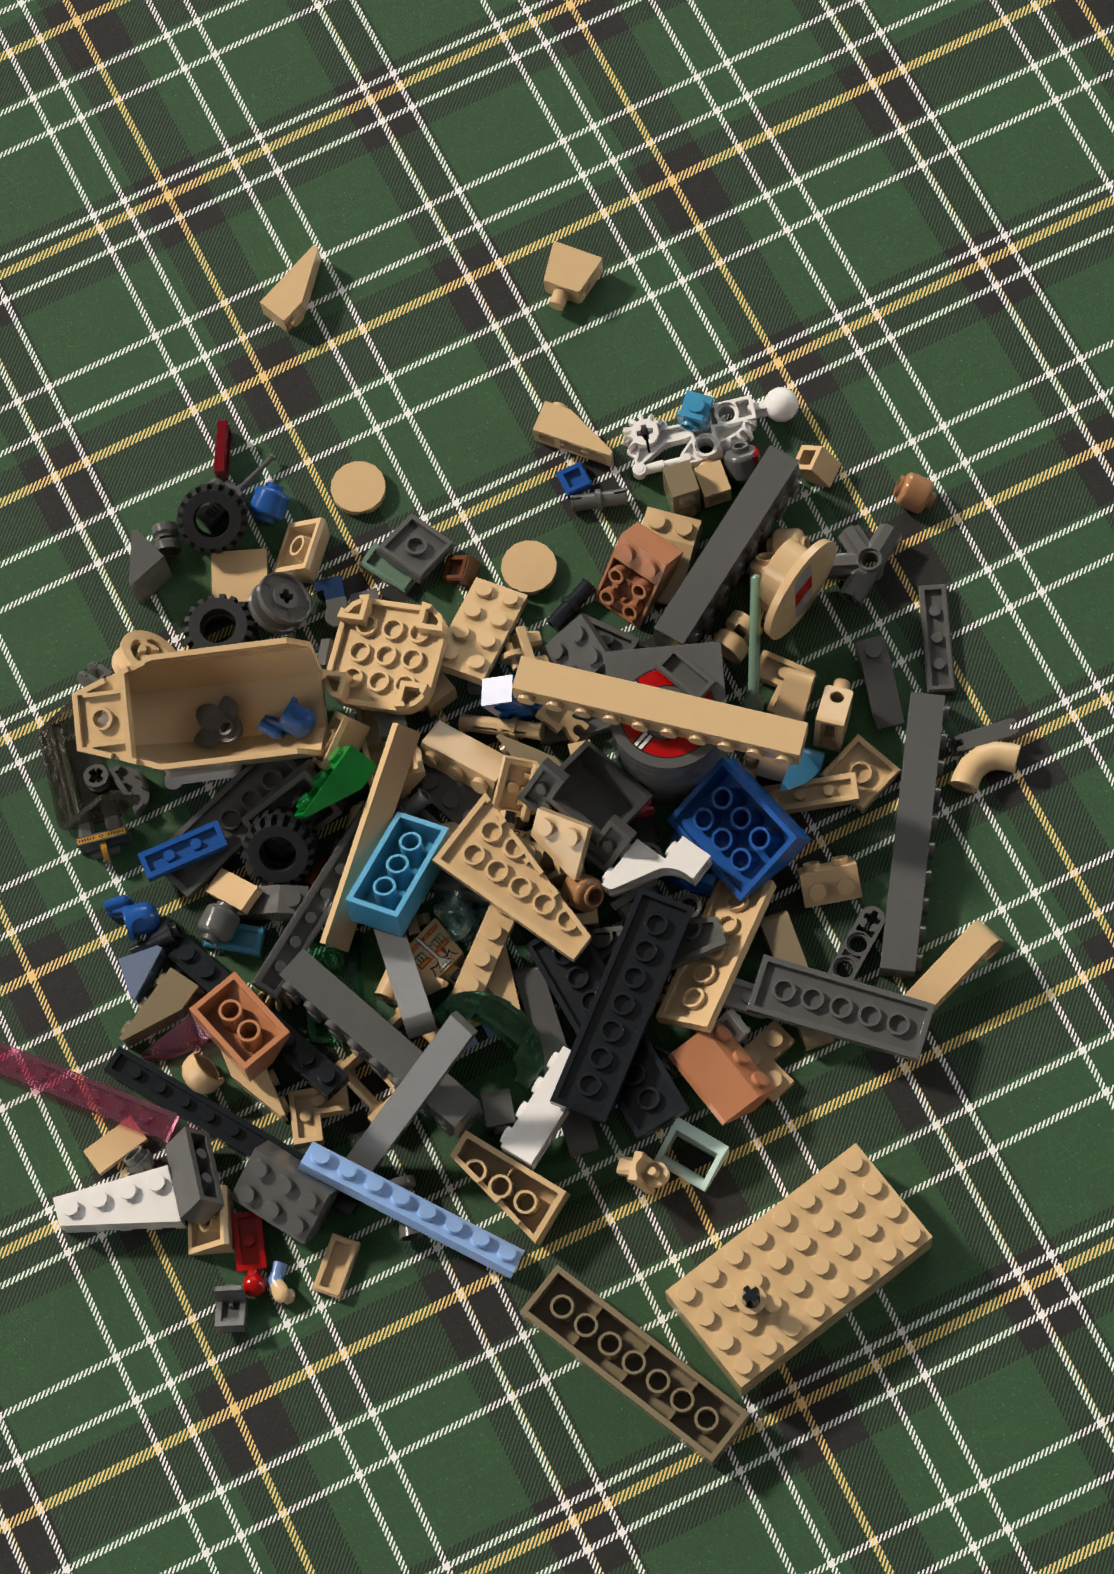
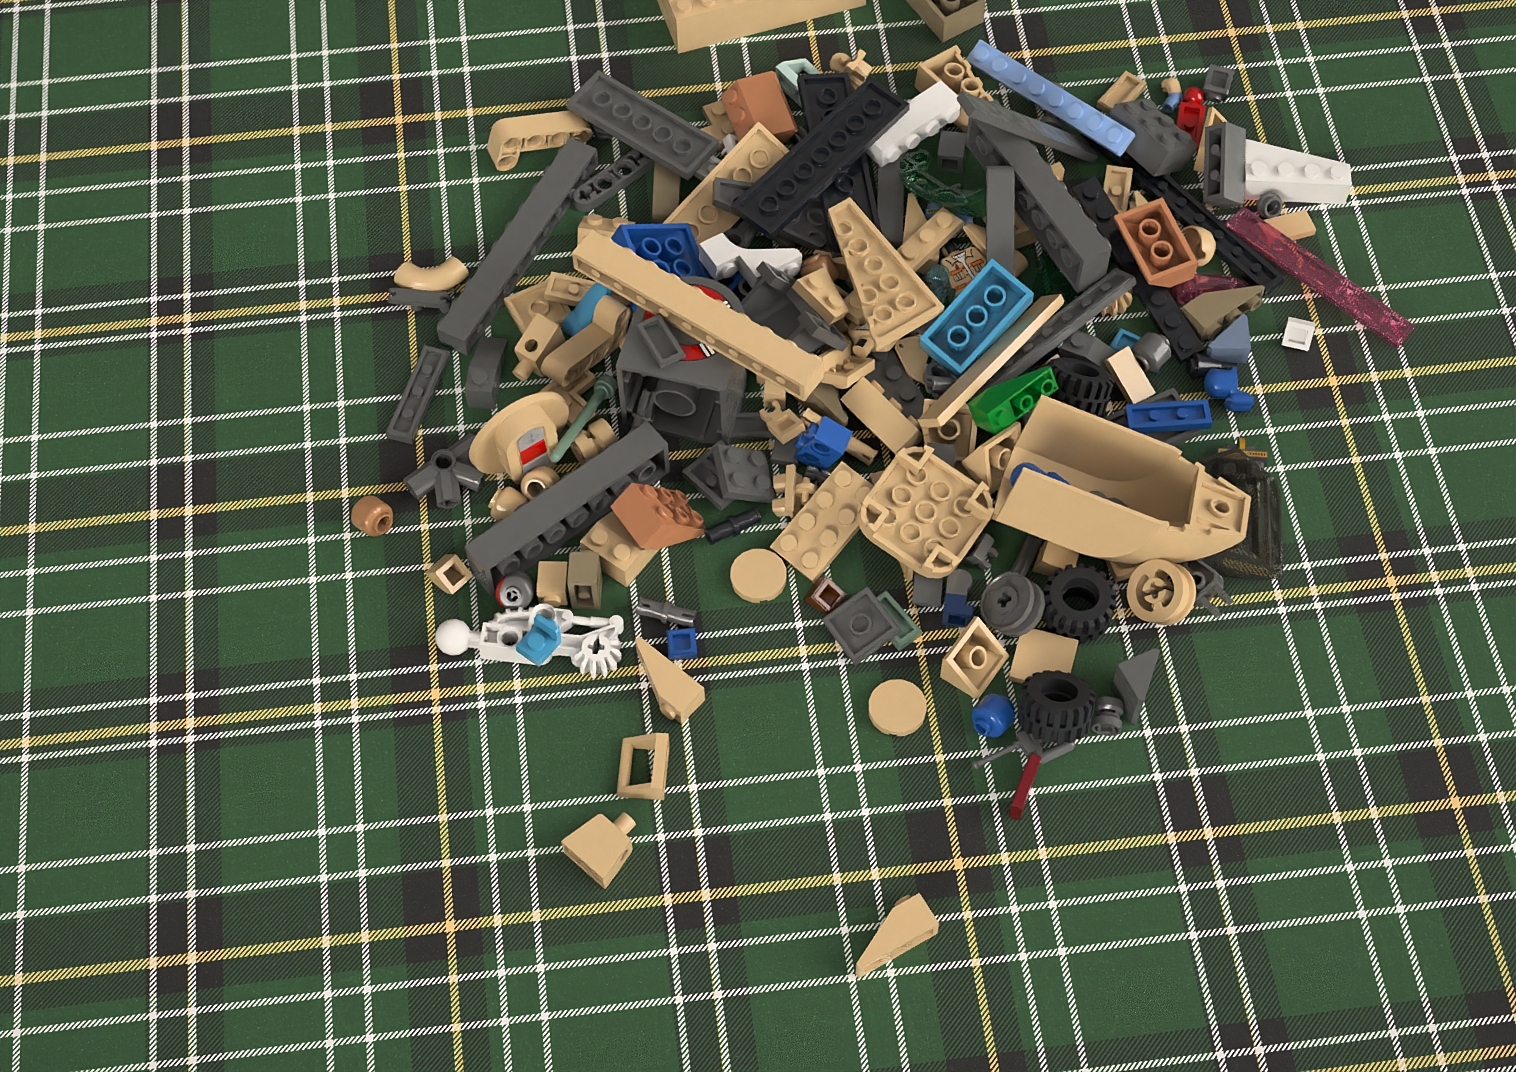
camera: 170 degrees left, 10 degrees down
(75, 1006) = (1298, 333): none -> white tile
(561, 378) = (655, 789): none -> tan tile

